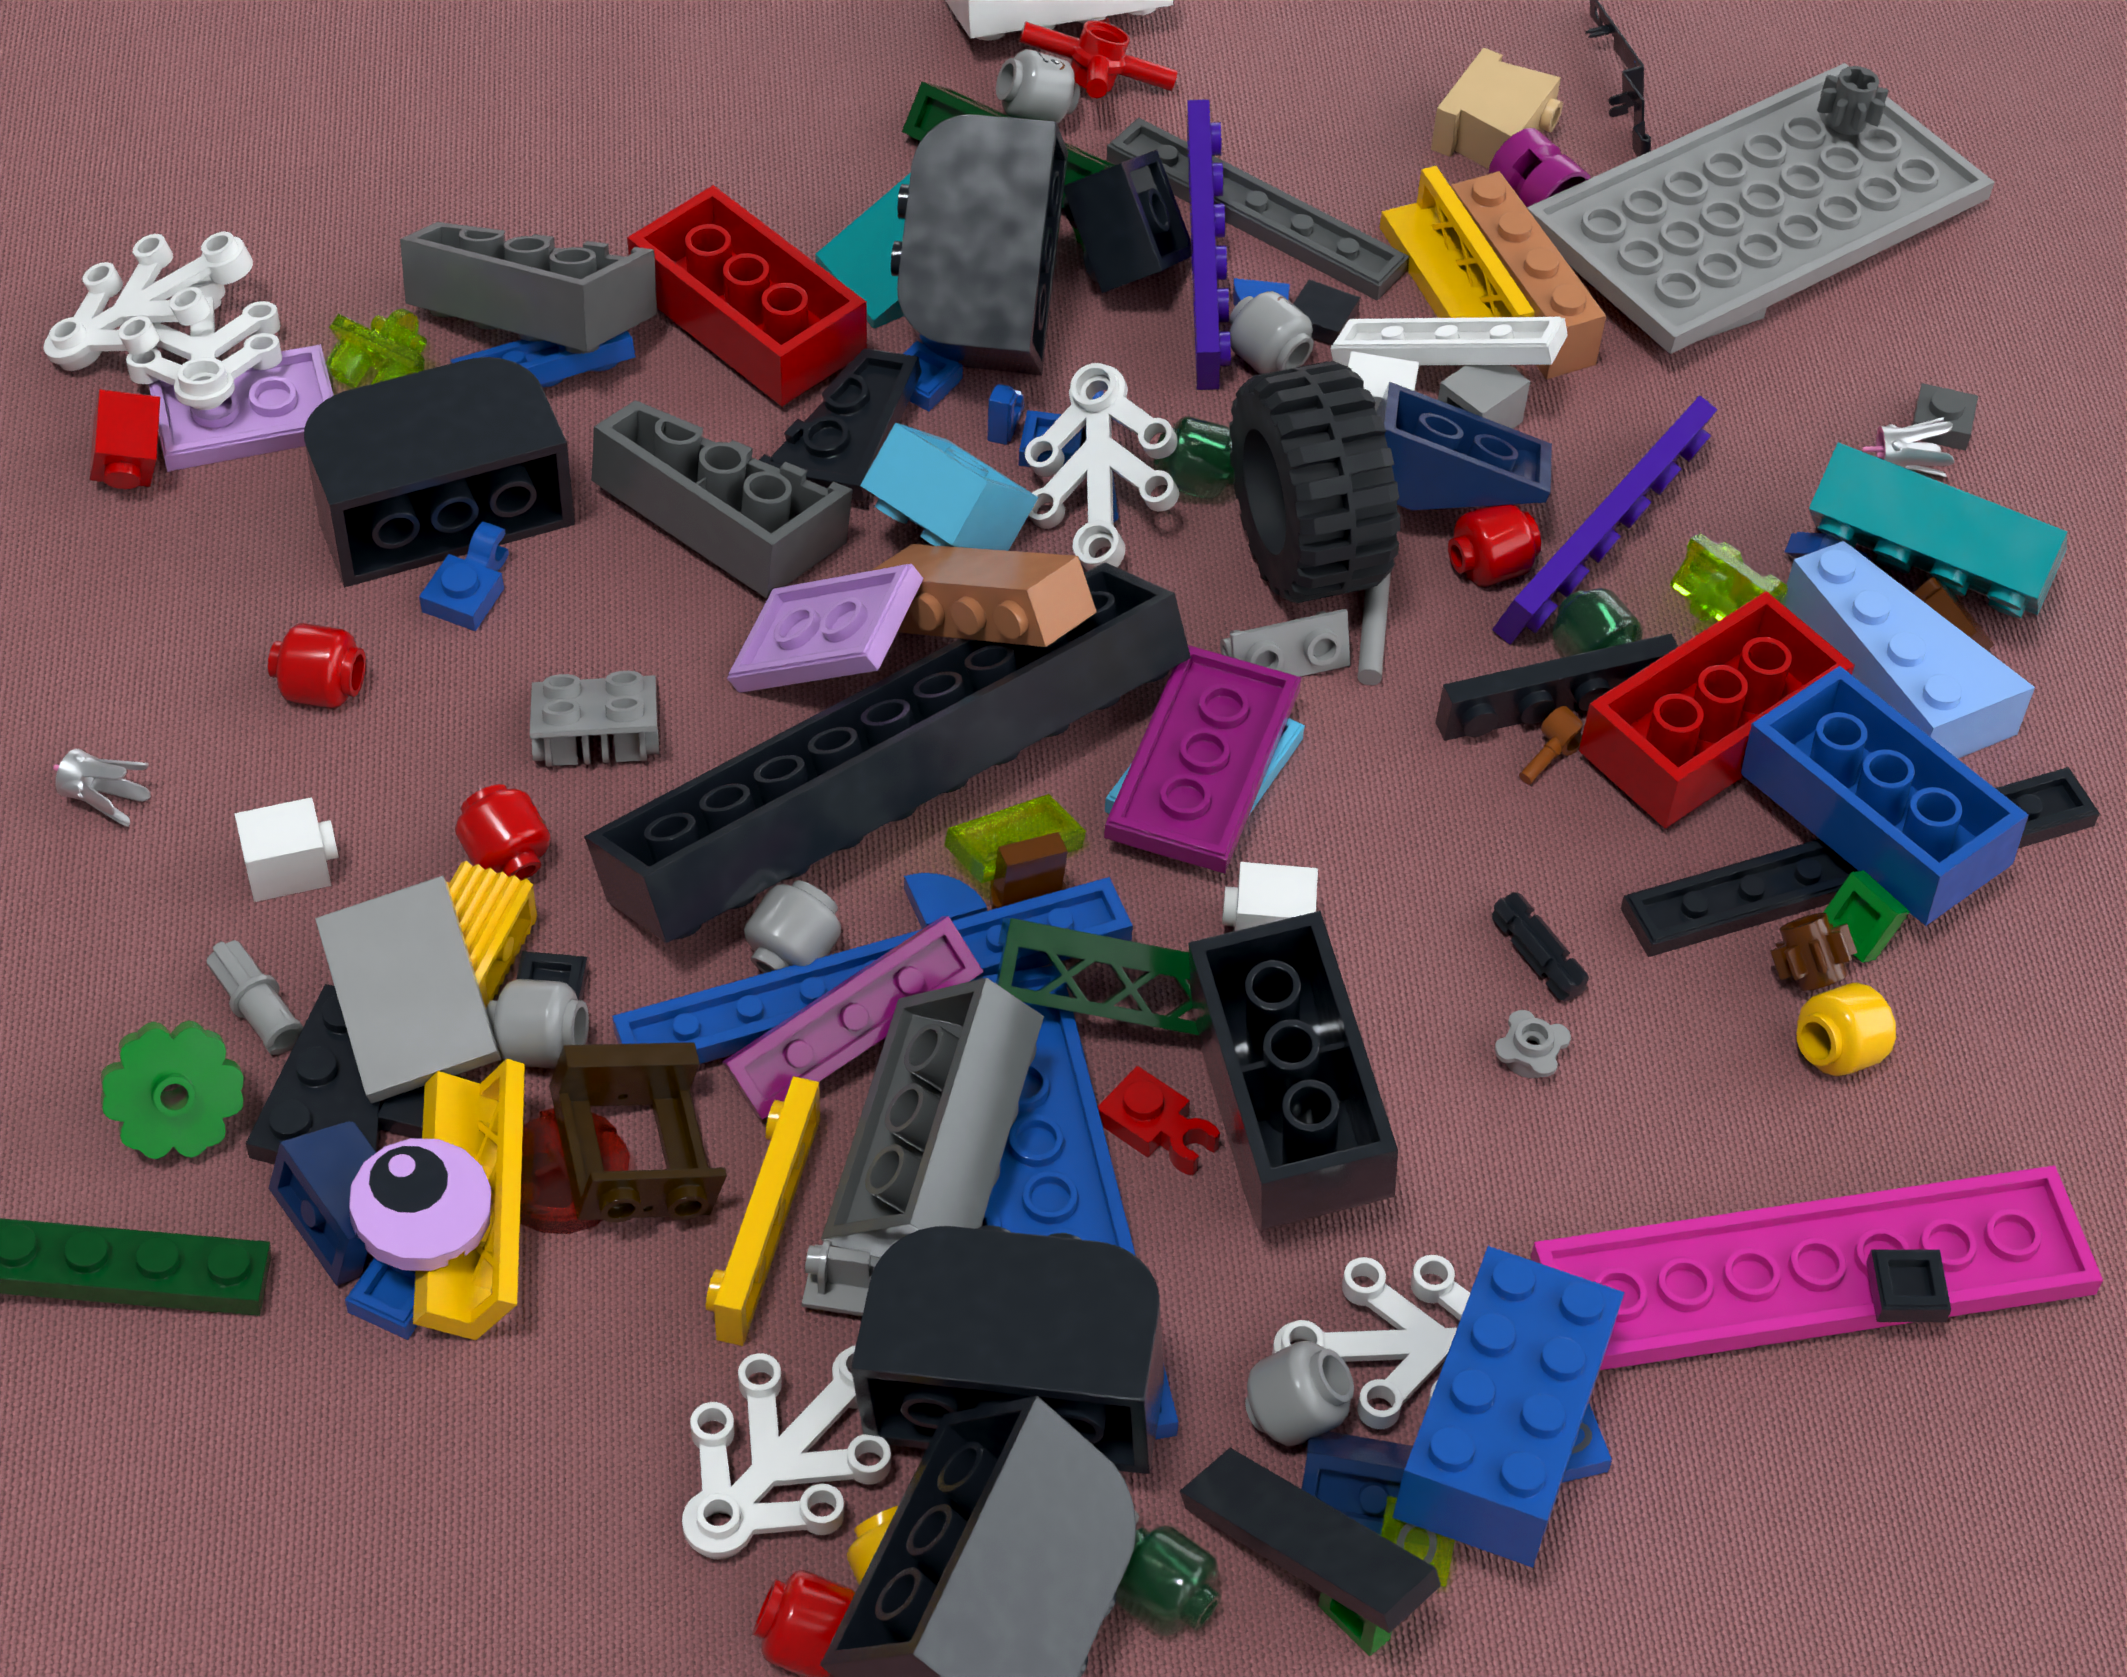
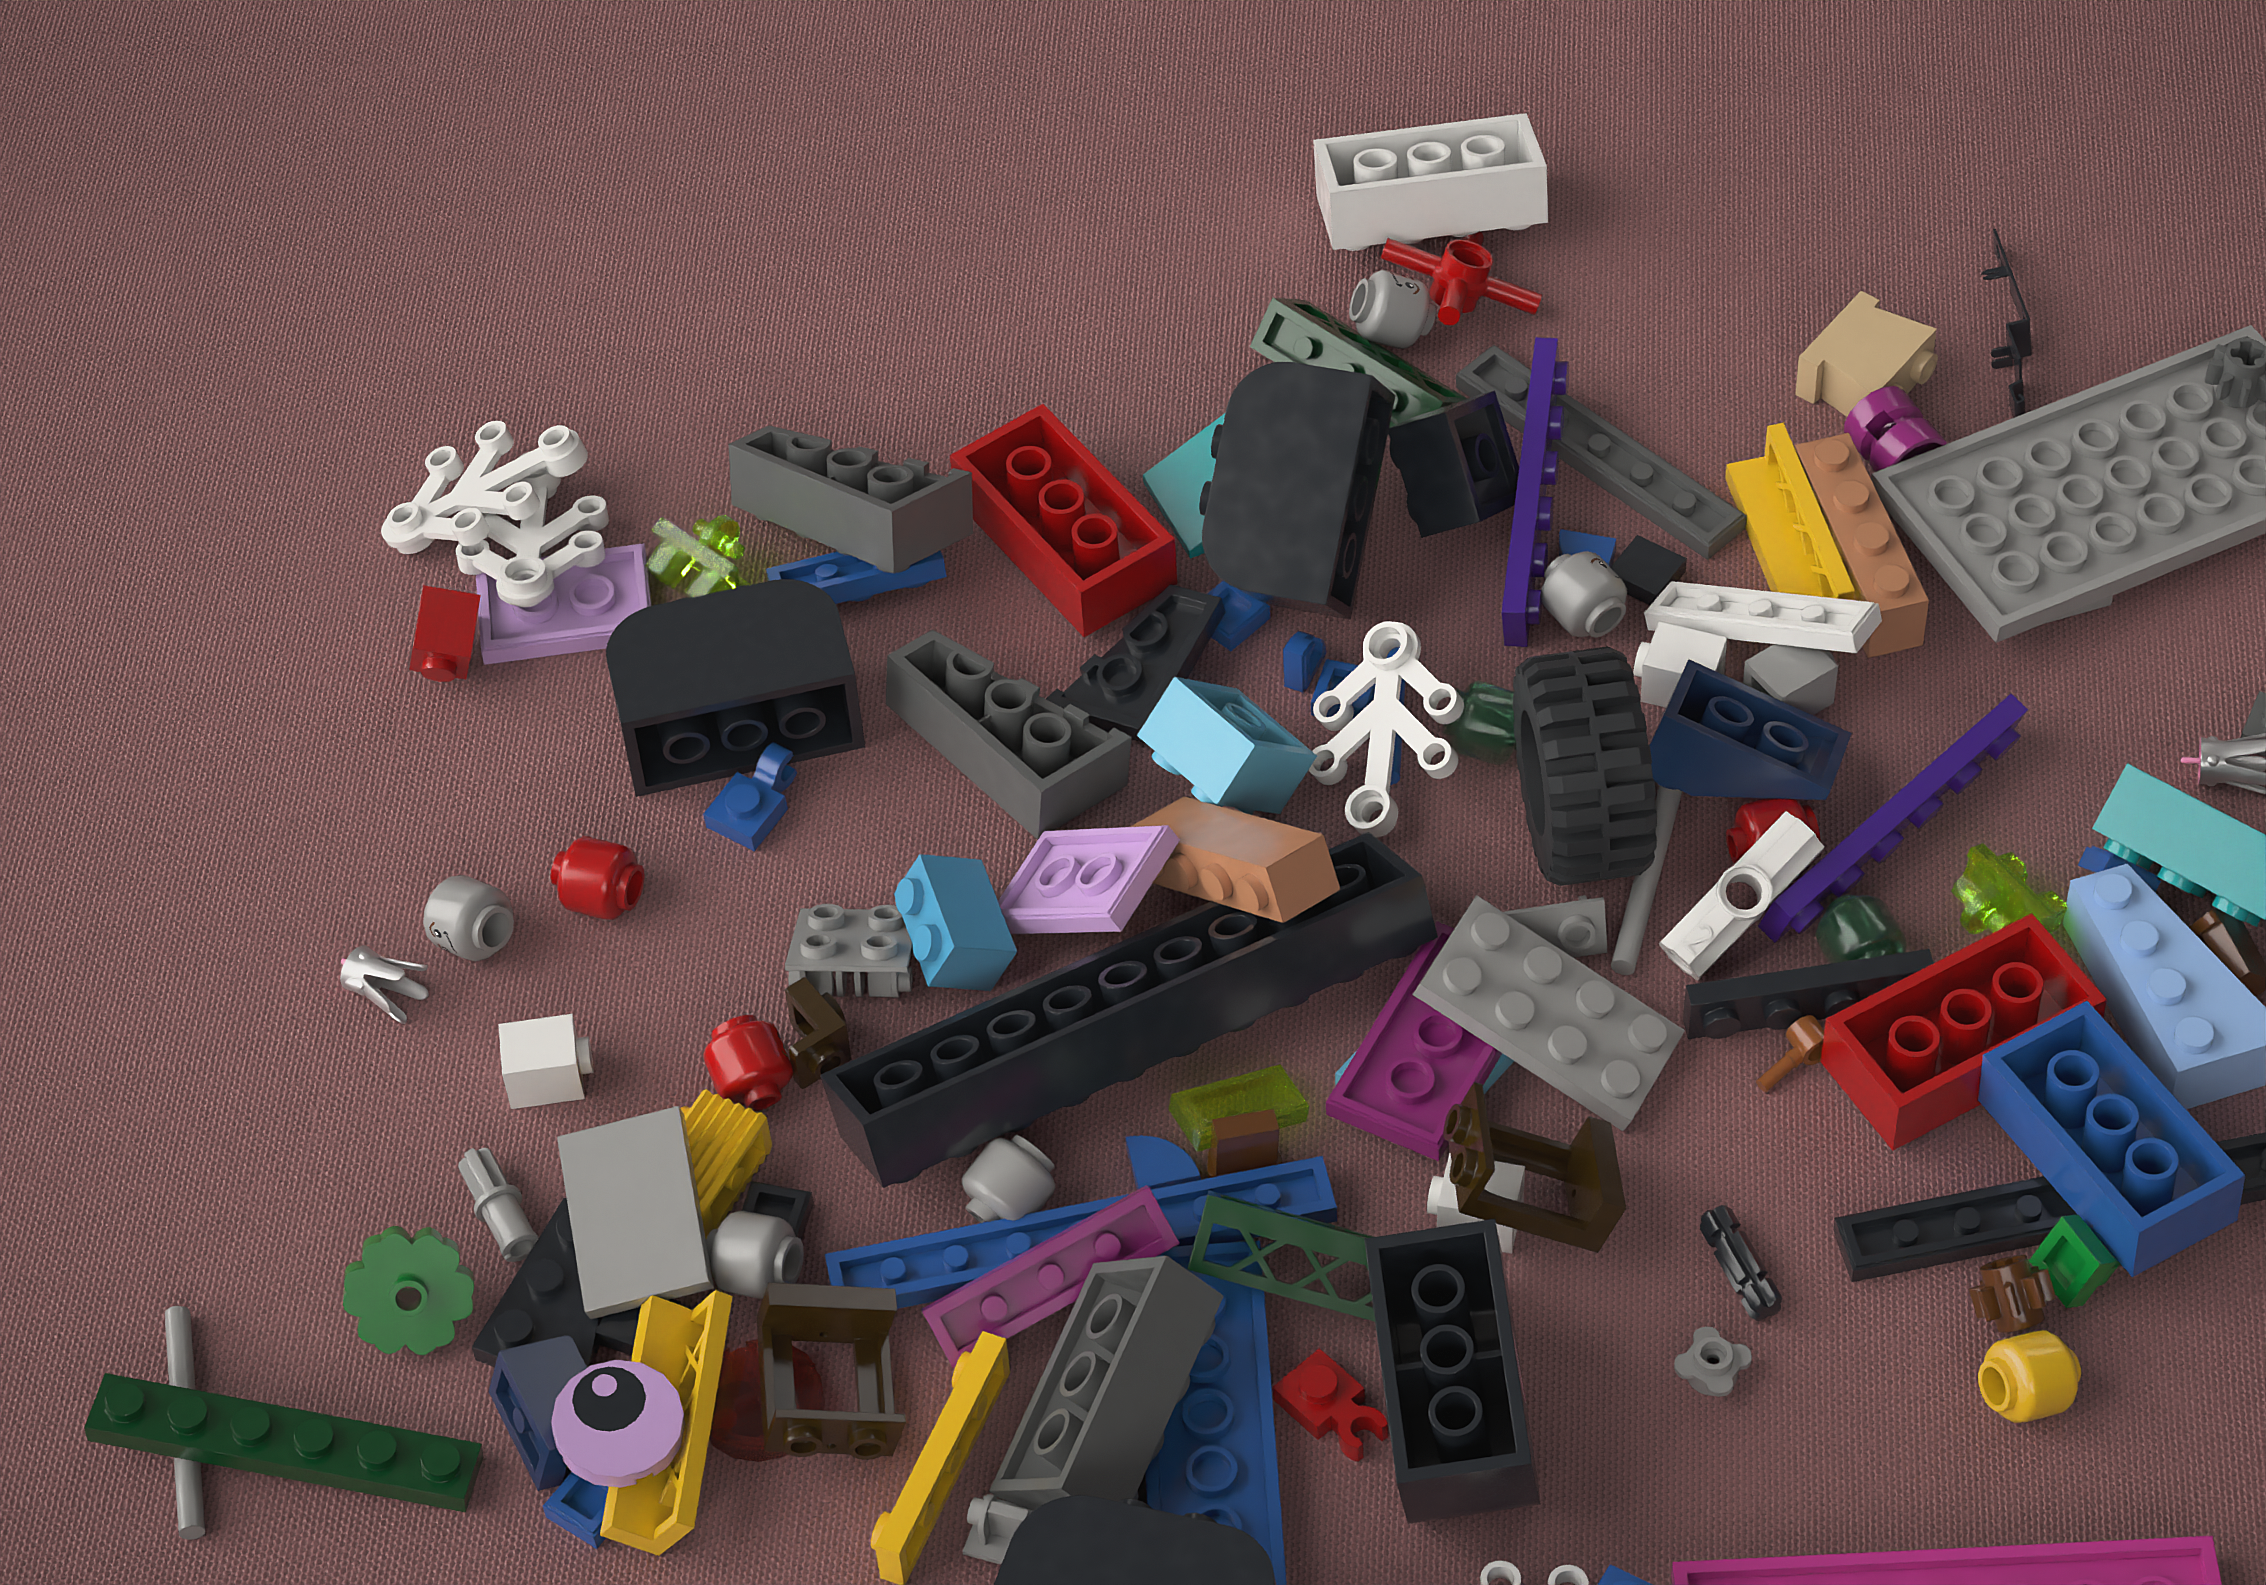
camera: 15 degrees right, 0 degrees up
(186, 714) = (468, 918): none -> light grey head
(572, 794) = (823, 1032): none -> dark brown bracket
(698, 680) = (954, 922): none -> dark azure brick
(1312, 721) = (1549, 1013): none -> light grey plate
(1375, 866) = (1586, 1167): none -> dark brown panel
(1498, 571) = (1768, 868): none -> white piece

